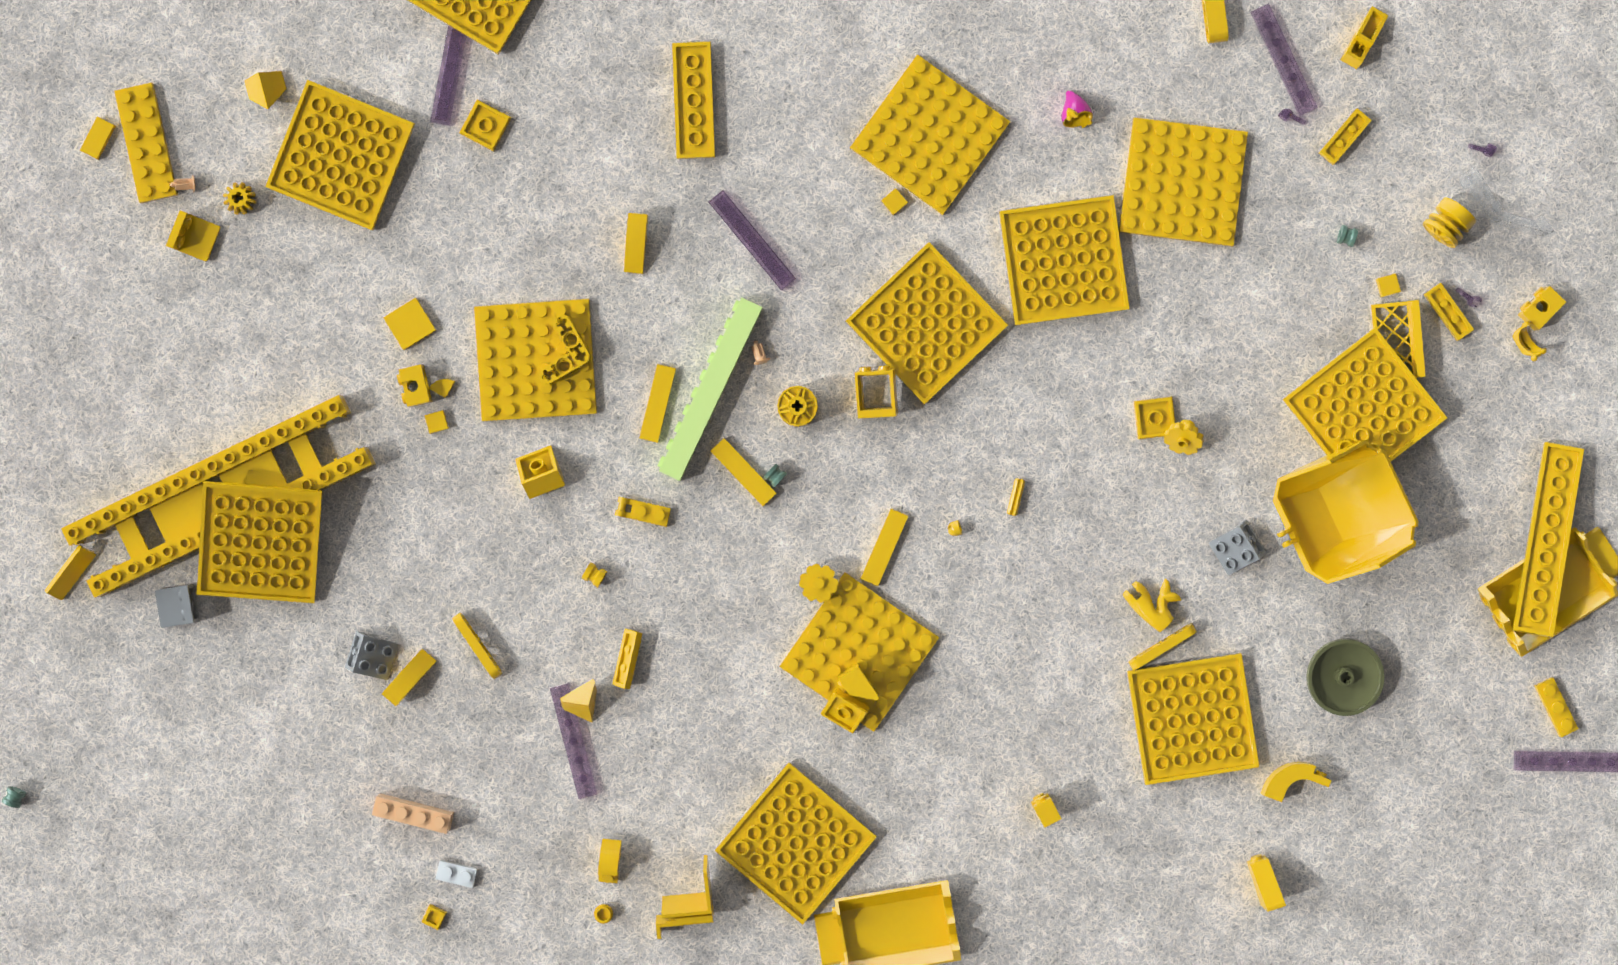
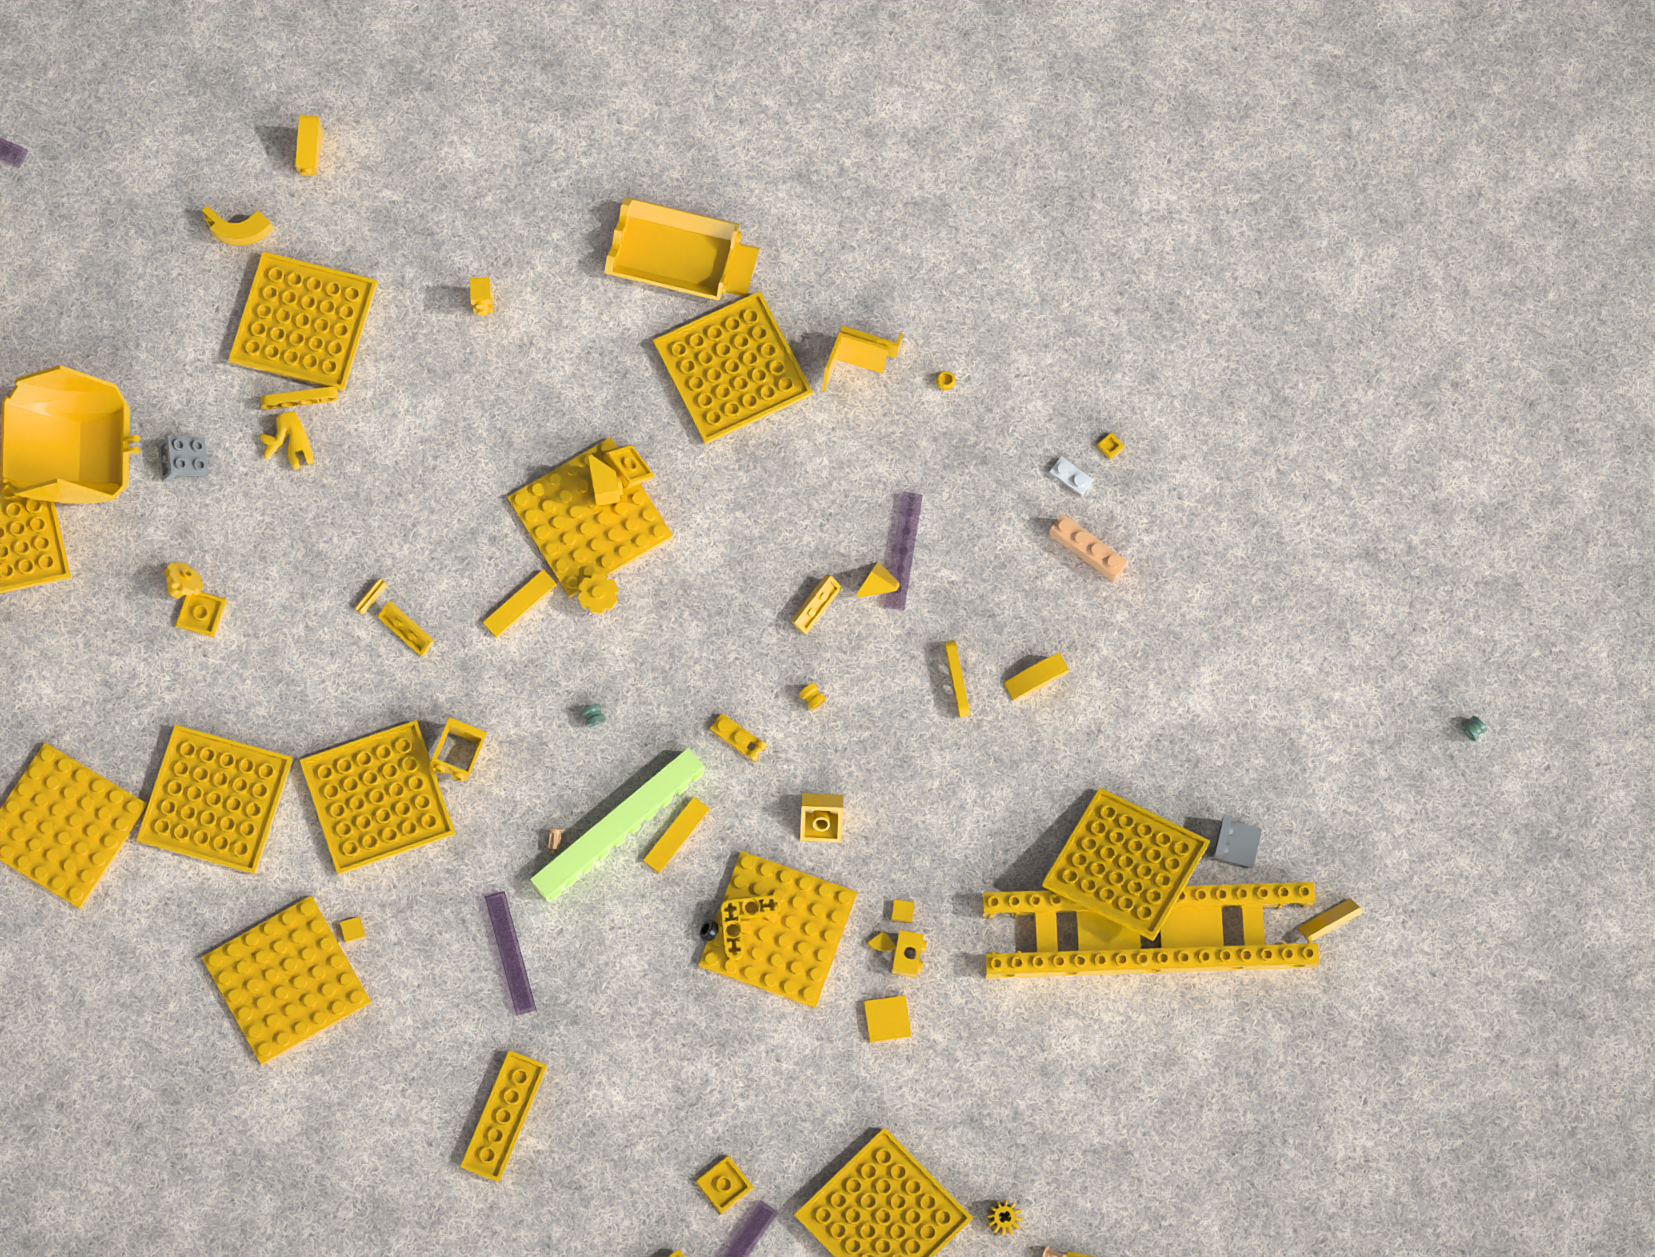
camera: 160 degrees left, 15 degrees down
(193, 236) = (1066, 1199): yellow bracket -> none
(371, 656) = (1066, 713): light grey bracket -> none
(592, 332) = (709, 930): none -> black tile
(609, 861) = (917, 424): yellow brick -> none
(635, 243) = (626, 999): yellow slope -> none
(743, 472) = (623, 733): yellow tile -> none
(804, 415) = (545, 779): yellow wheel -> none
(954, 528) = (441, 592): yellow hinge -> none
(971, 480) = (405, 628): none -> yellow plate
(1076, 111) = (132, 938): hat -> none
(1345, 677) = (141, 296): olive dish -> none

